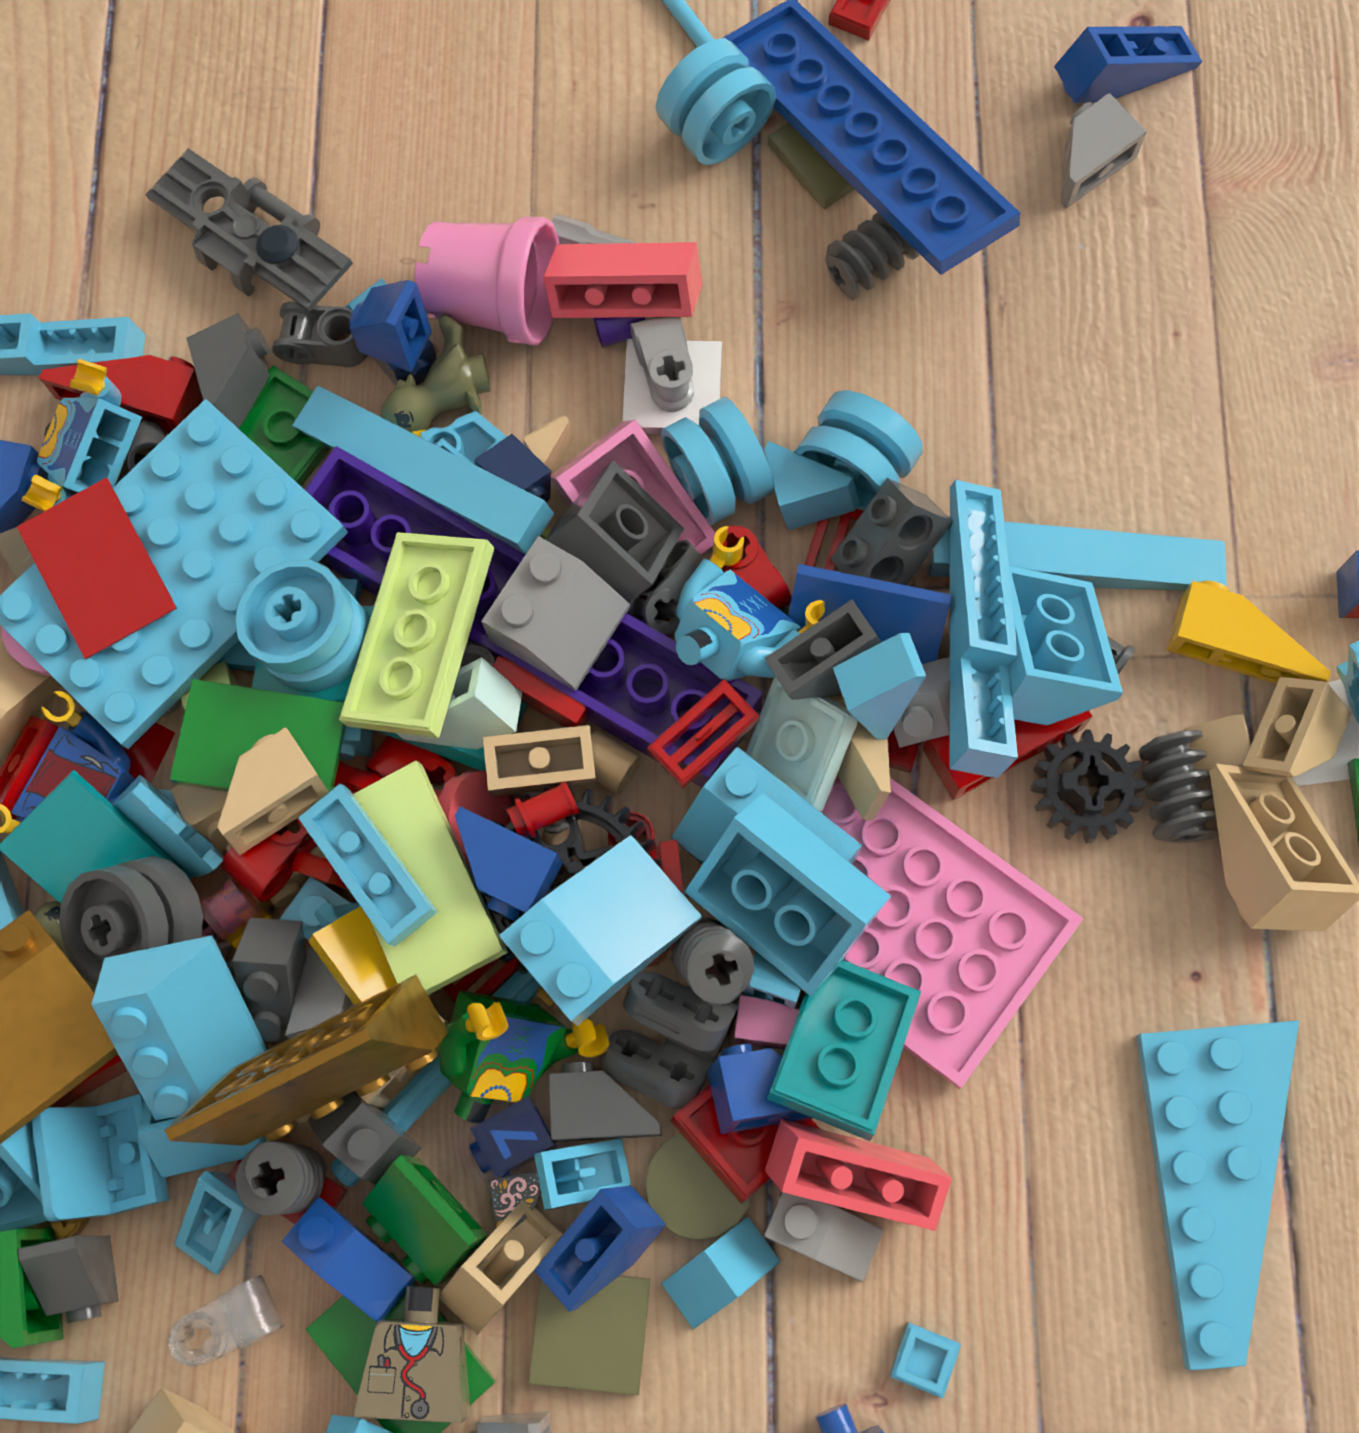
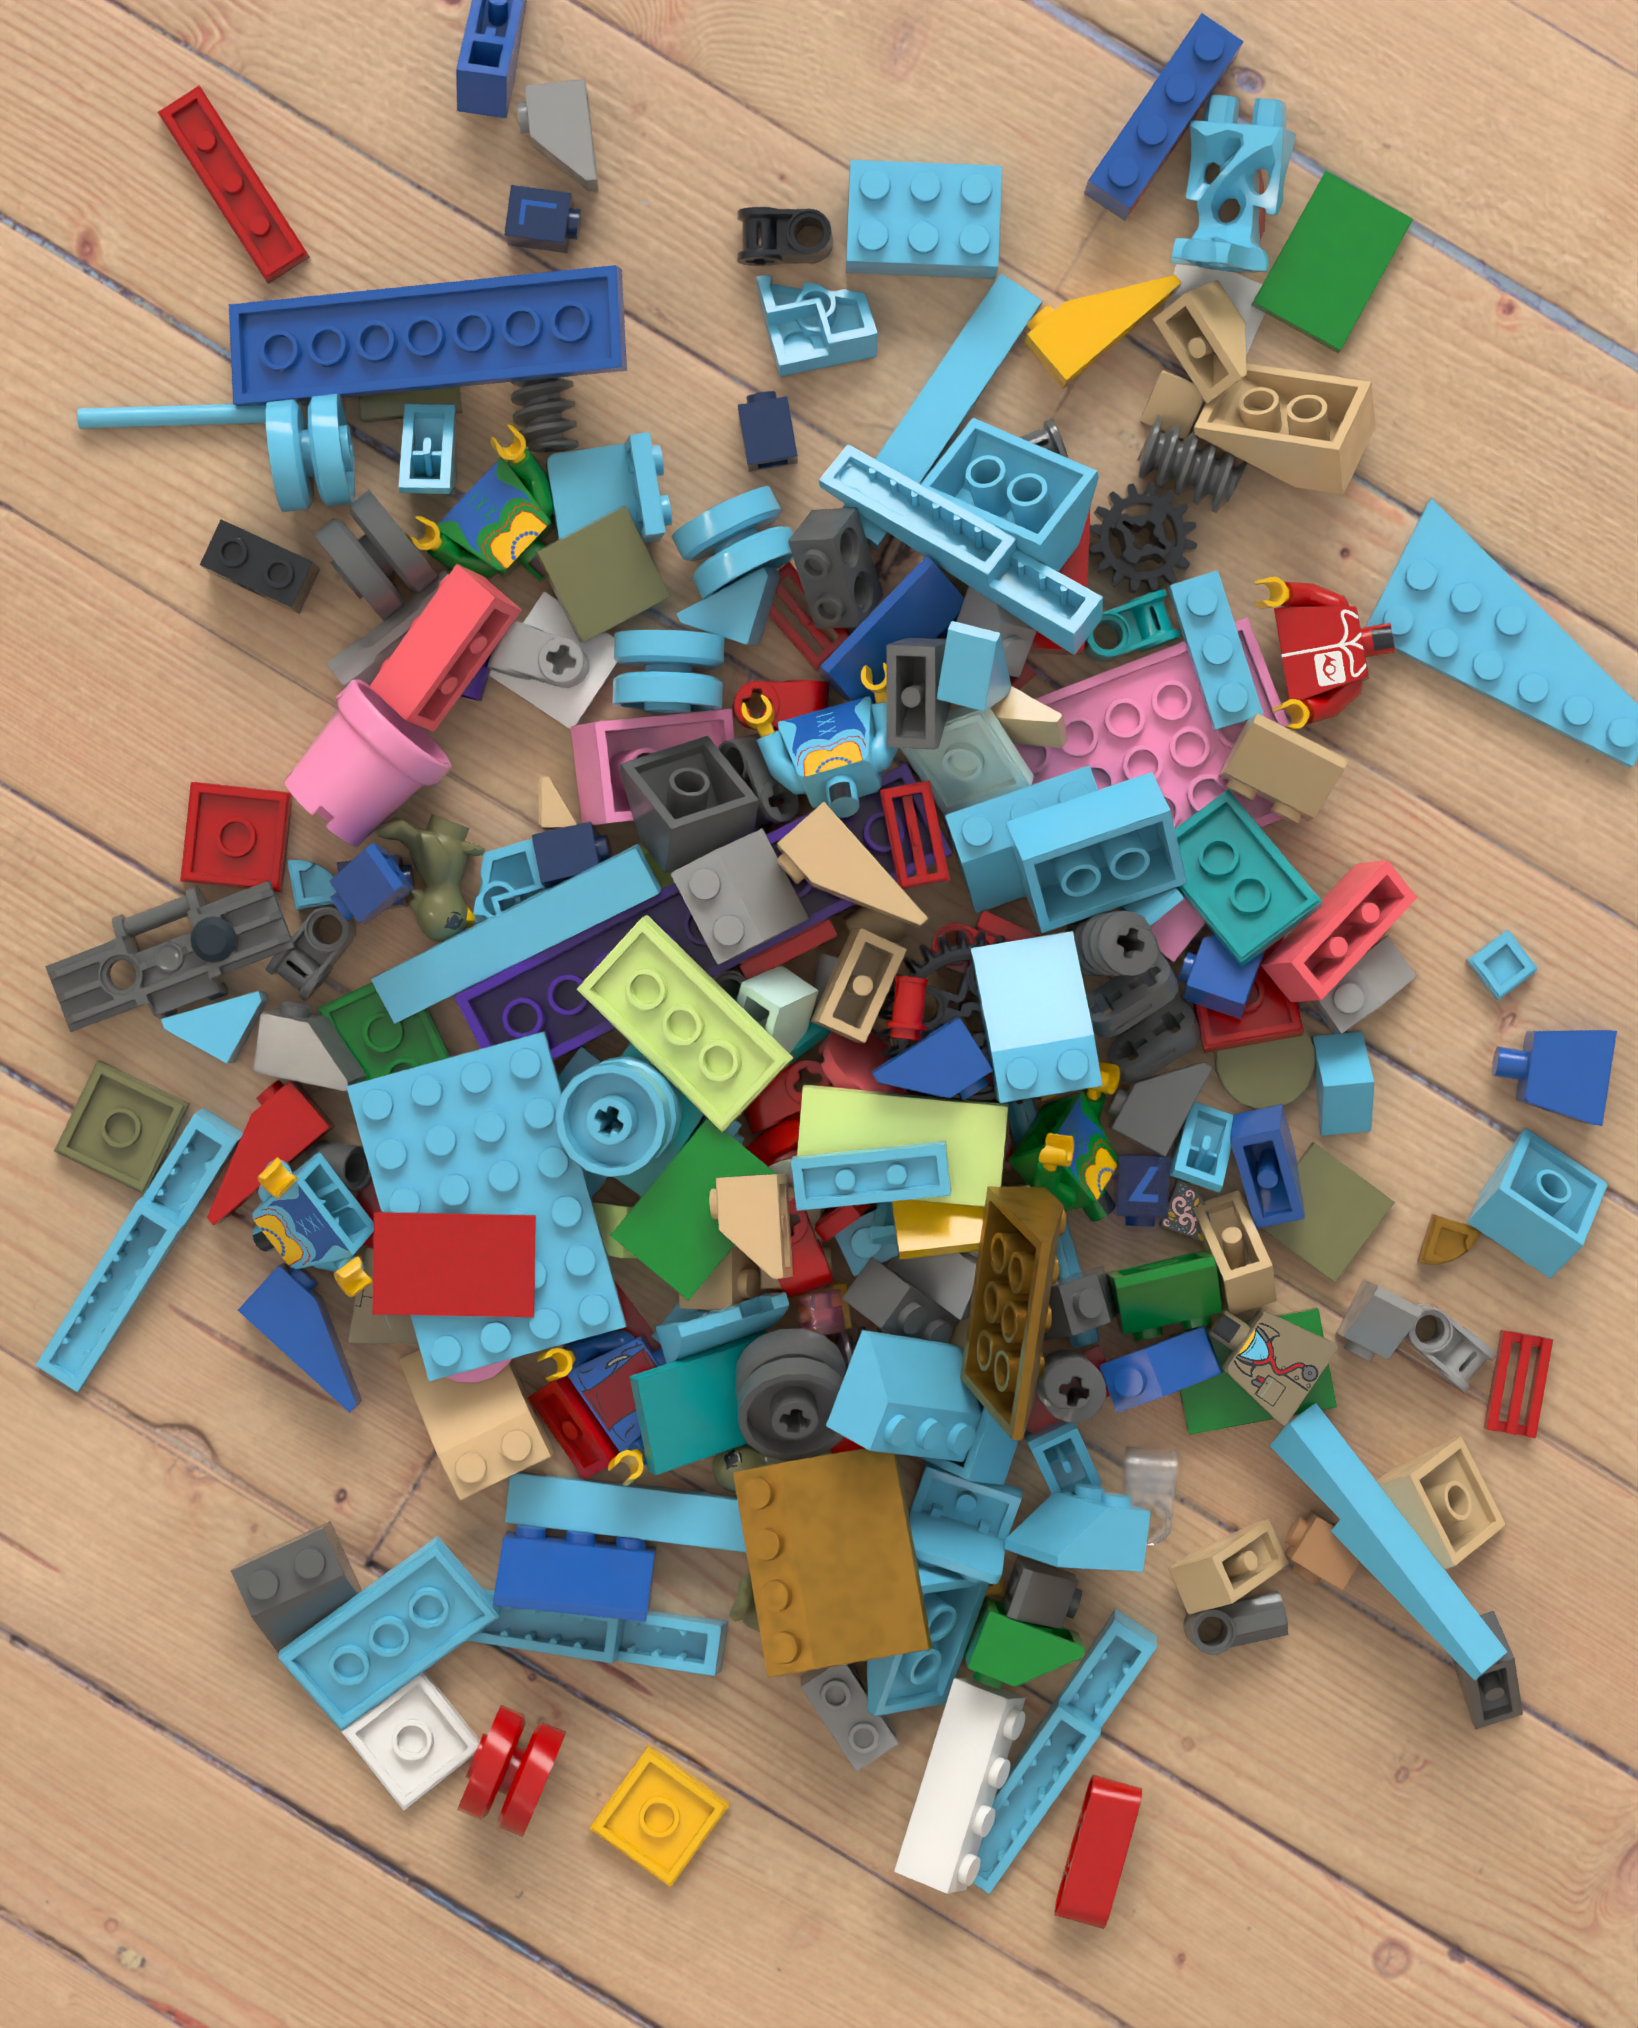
camera: 65 degrees left, 15 degrees up
(93, 278) = (122, 1127): none -> olive tile
(145, 1279) = (1084, 1531): none -> medium azure slope
(212, 297) = (219, 1027): none -> medium azure slope
(378, 233) = (236, 836): none -> red tile
(604, 125) = (260, 566): none -> black brick
(637, 663) = (839, 864): none -> tan slope
(665, 190) = (375, 556): none -> dark grey wheel
(757, 272) = (497, 519): none -> torso
(764, 370) = (602, 574): none -> olive tile
(776, 190) = (428, 449): none -> medium azure slope
(830, 342) = (604, 478): none -> medium azure bracket
(965, 432) = (767, 431): none -> dark blue brick
(971, 1024) = (1281, 769): none -> tan slope
(1008, 826) = (1138, 625): none -> teal piece
(1015, 168) = (541, 219): none -> dark blue brick
(1035, 906) = (1215, 650): none -> medium azure plate
(1077, 424) = (815, 326): none -> medium azure slope
(1099, 999) = (1321, 648): none -> red torso
(1128, 347) = (779, 236): none -> black piece
(1224, 449) = (923, 219): none -> medium azure brick

